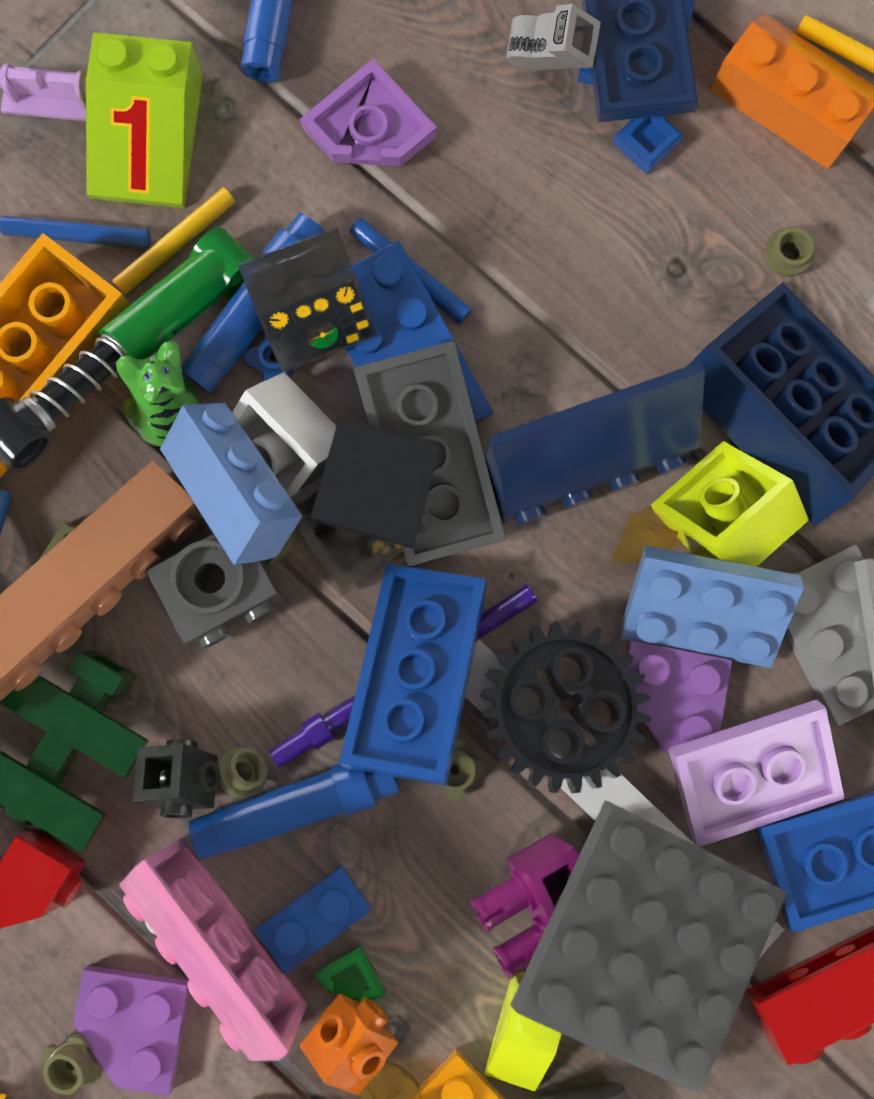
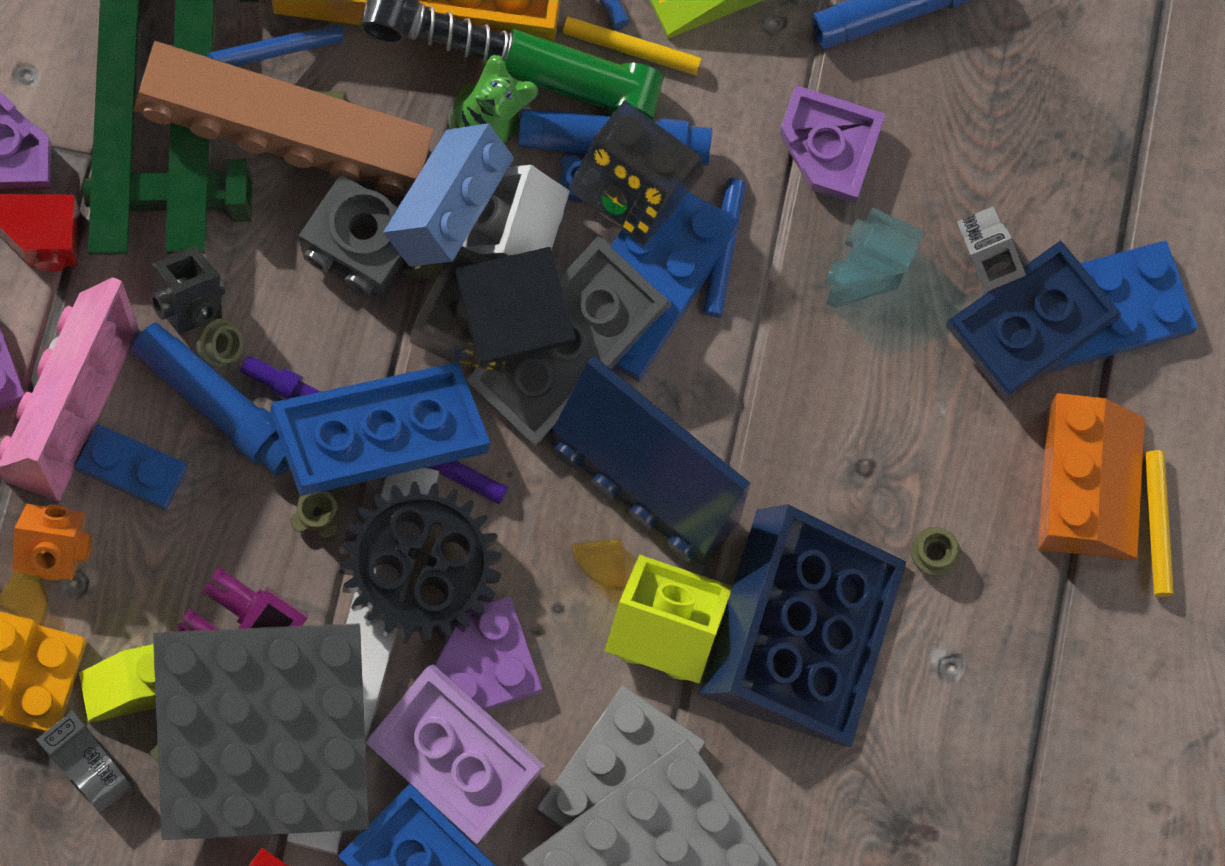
camera: 55 degrees right, 10 degrees down
(351, 976) = (103, 521): green tile -> none
(499, 142) = (877, 259): none -> clear light blue slope
(648, 141) = (962, 381): blue tile -> none
(710, 606) = (573, 637): medium blue plate -> none

